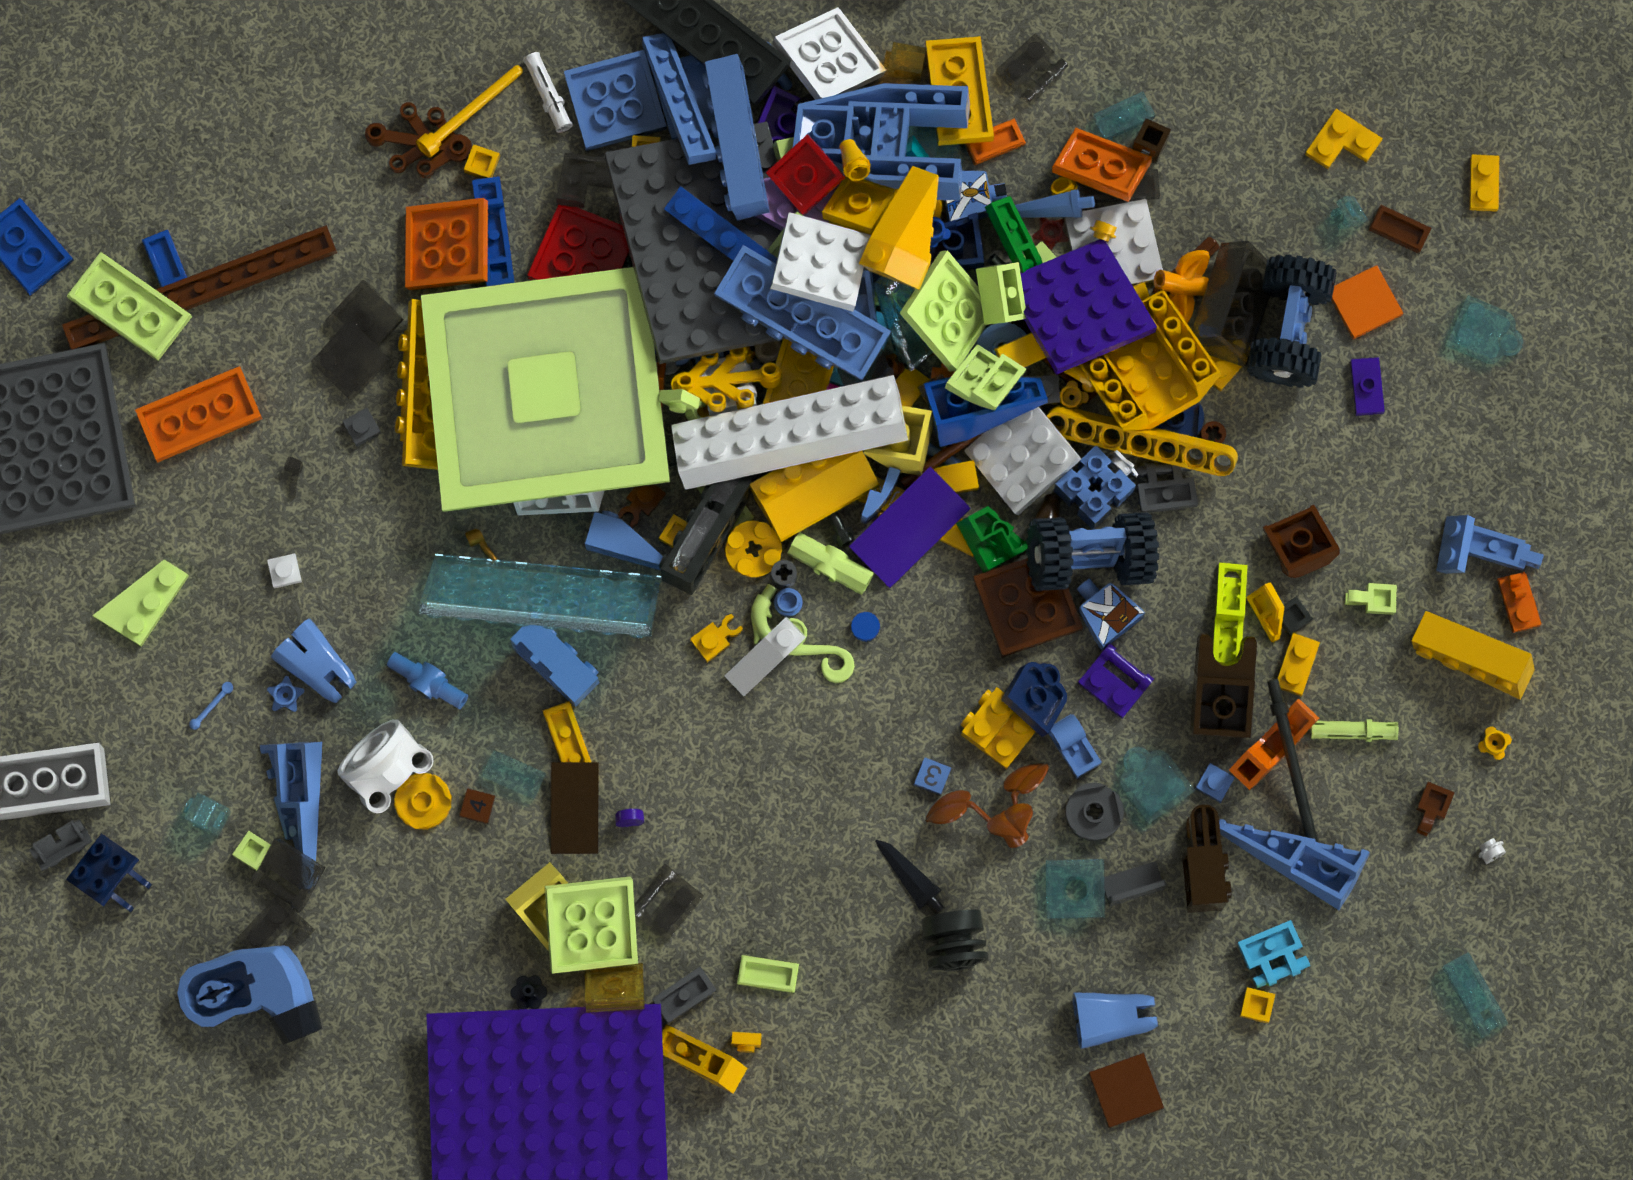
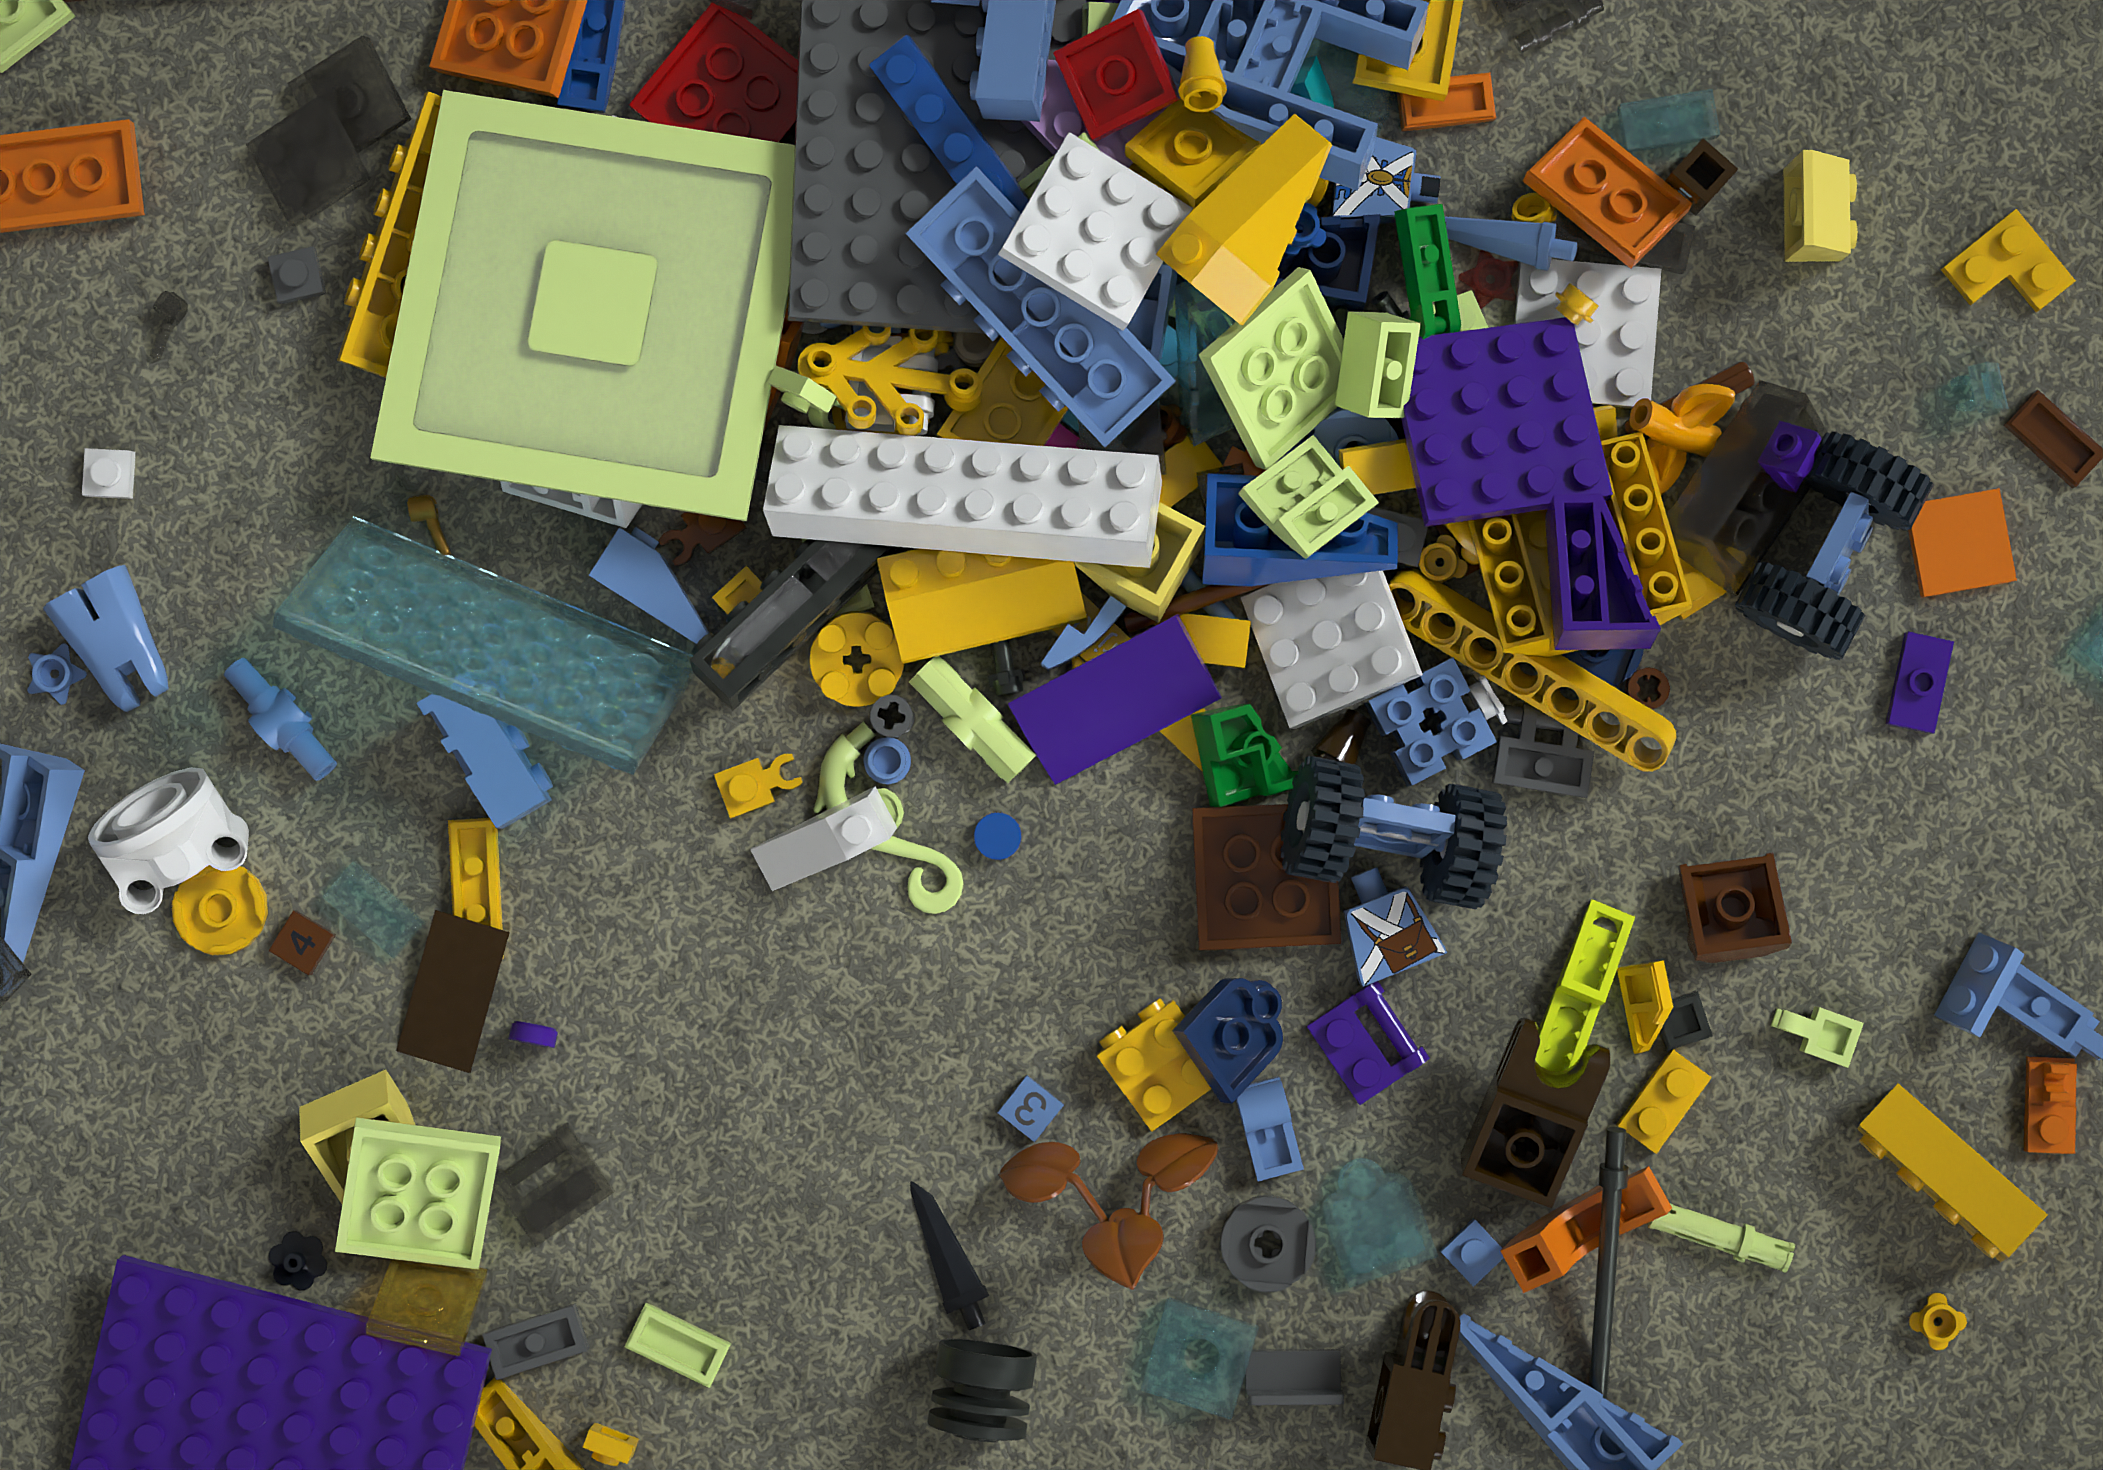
camera: 20 degrees right, 10 degrees up
(1160, 376) = (1592, 585): none -> dark purple wedge
(1224, 139) = (1818, 208): none -> light yellow slope
(1250, 276) = (1790, 454): none -> dark purple bracket
(1434, 804) = (1810, 1392): reddish brown plate -> none

